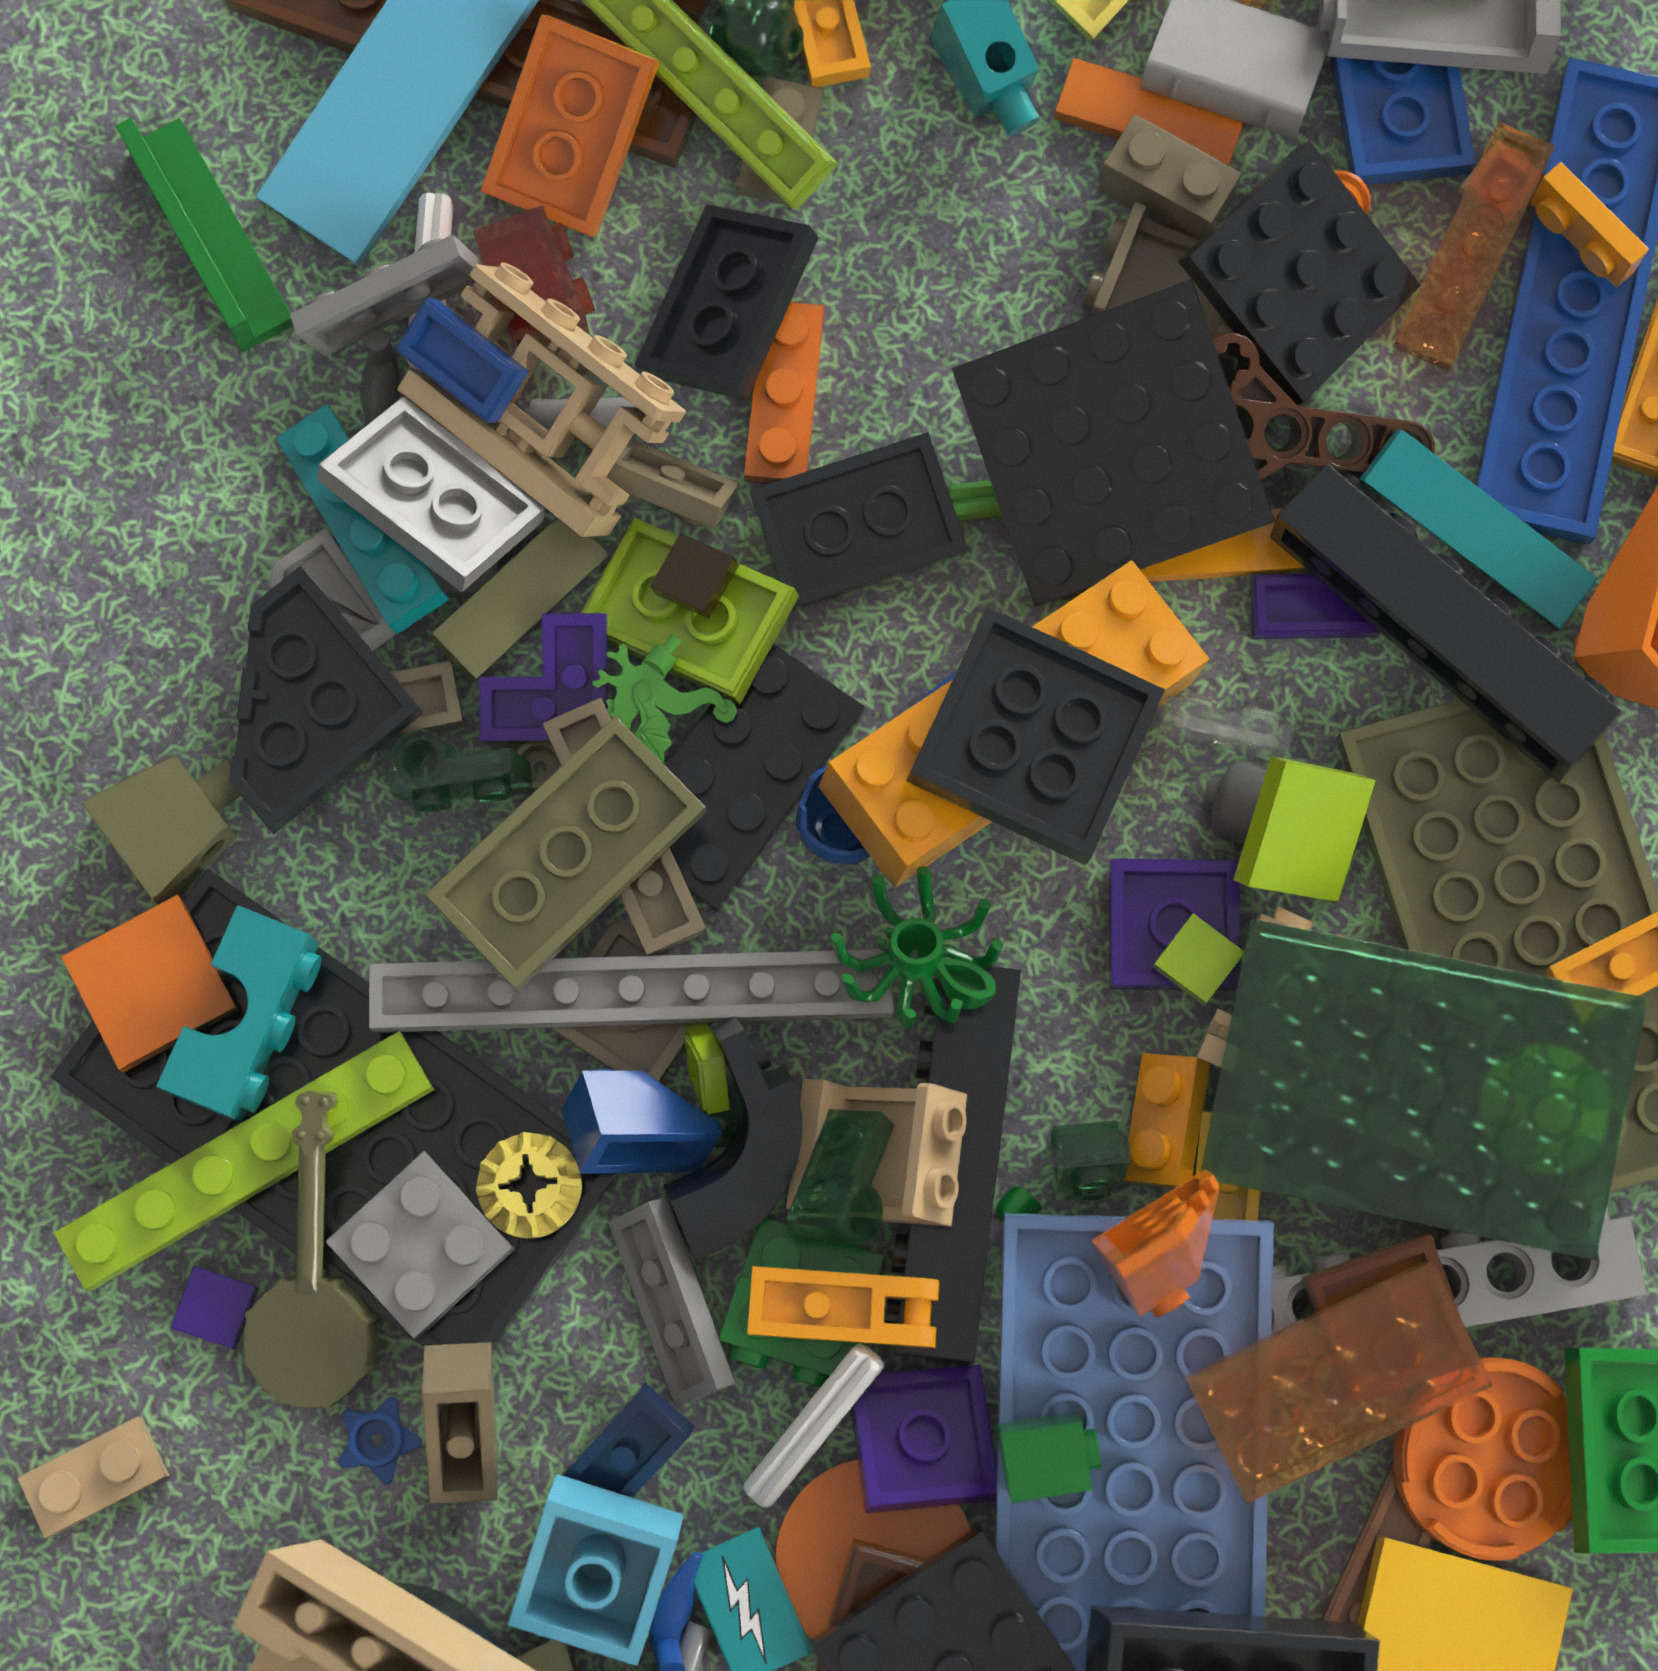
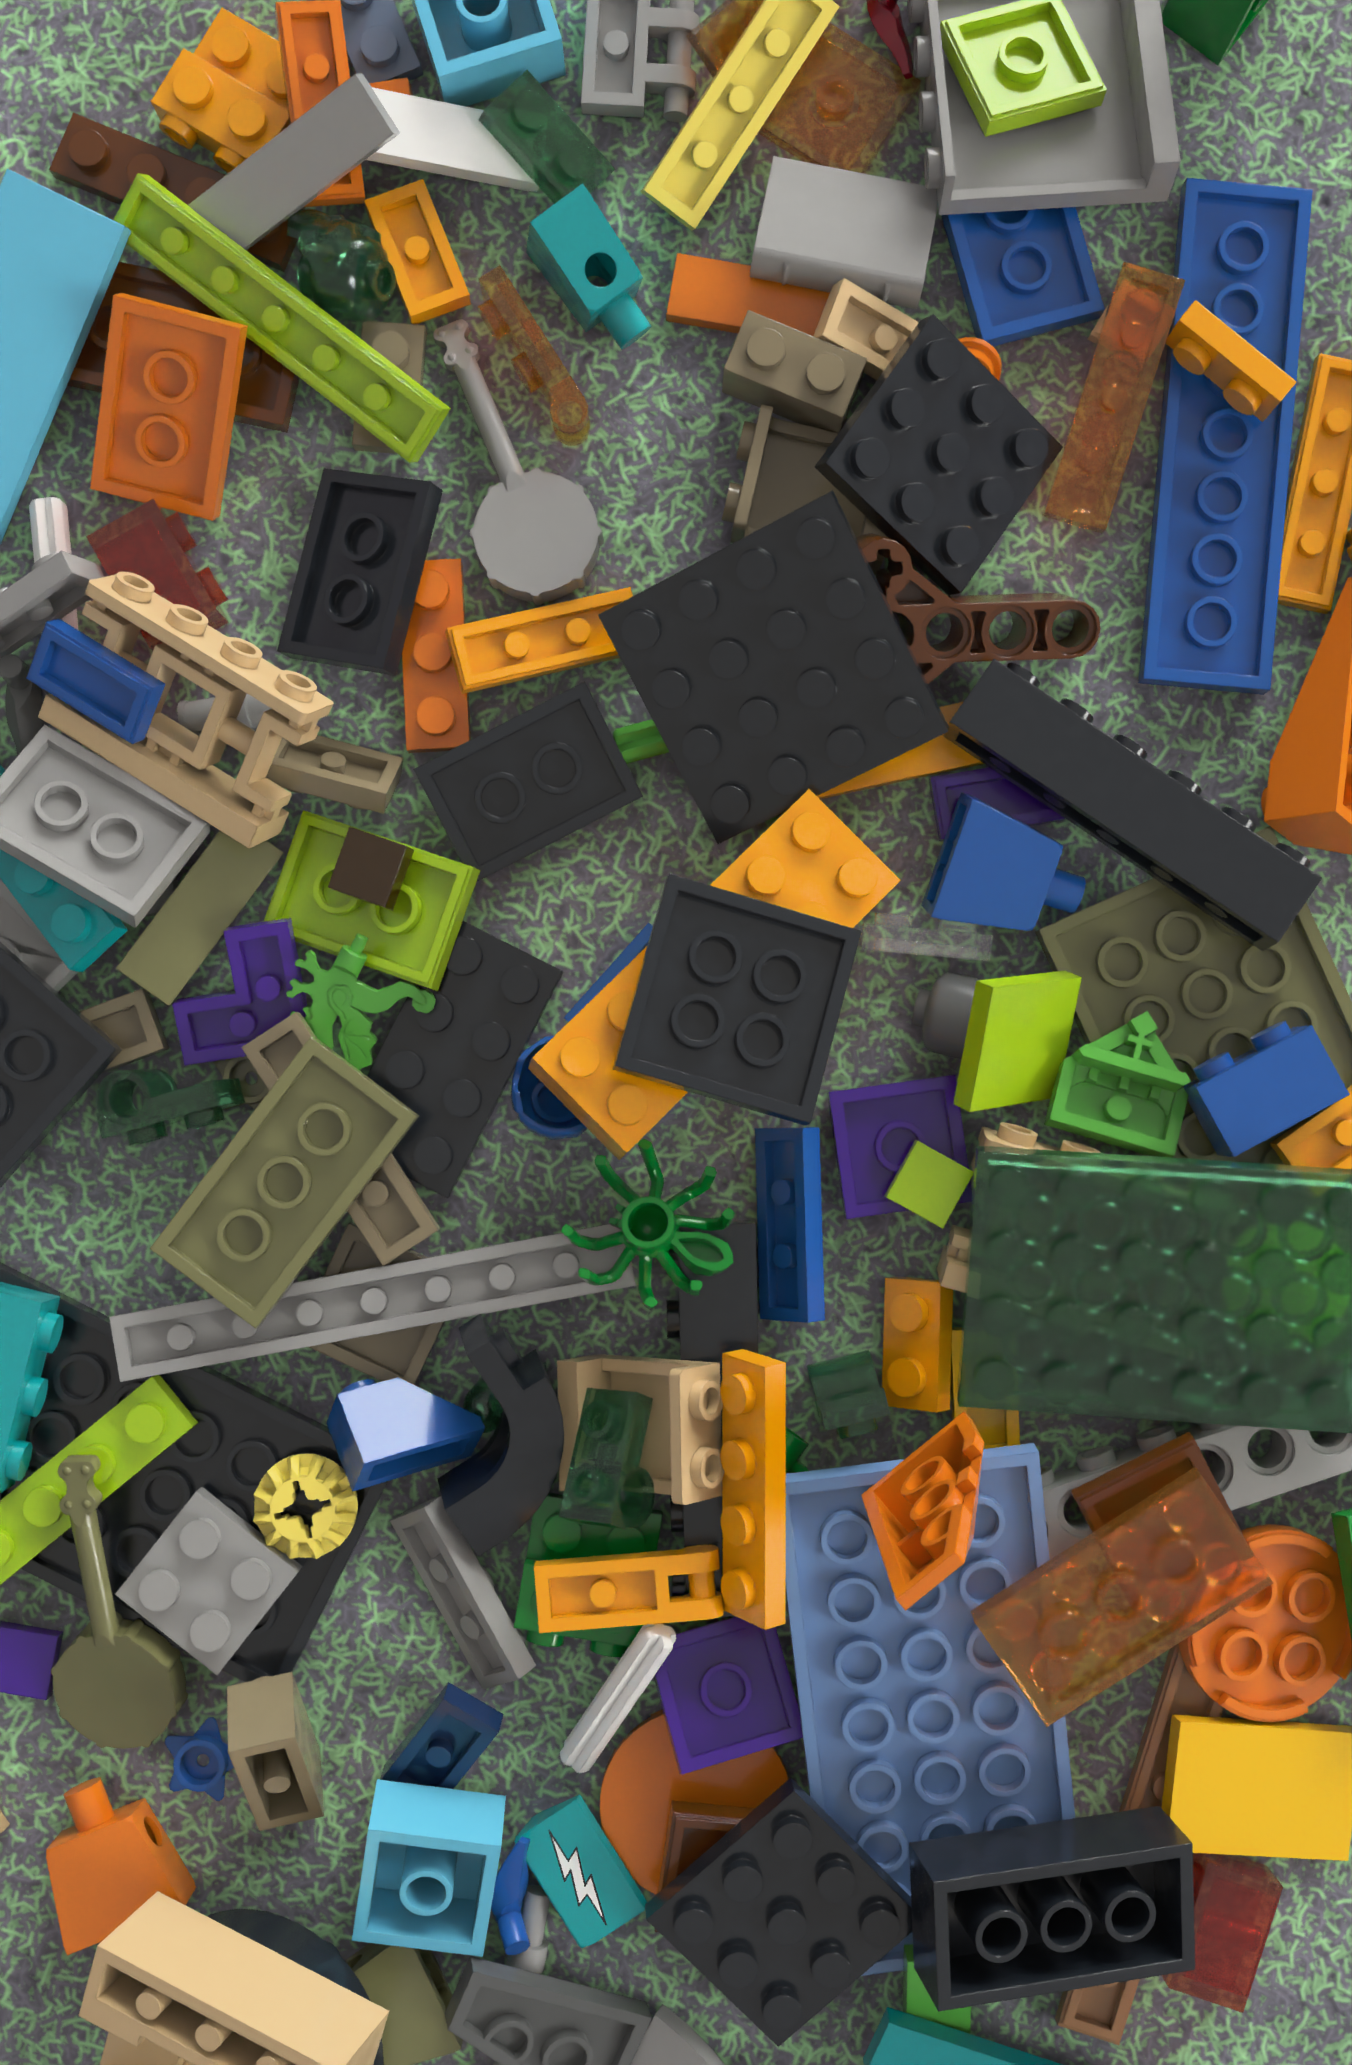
camera: 10 degrees left, 10 degrees up
(261, 1516) = (109, 1865): none -> orange torso
(706, 1068) = (460, 1368): lime tile -> none
(882, 392) = (532, 642): none -> light orange tile
(899, 289) = (534, 526): none -> light grey piece
(925, 132) = (536, 359): none -> clear orange plate
(984, 1218) = (754, 1487): none -> light orange plate
(1048, 1456) = (847, 1712): green brick -> none
(1054, 983) = (789, 1224): none -> blue plate
(1242, 144) = (864, 325): none -> tan plate
(1308, 667) = (998, 871): none -> blue torso
(1401, 894) = (1122, 1091): none -> bright green slope
(1478, 528) = (1151, 699): teal tile -> none
(1543, 911) = (1264, 1088): none -> blue brick

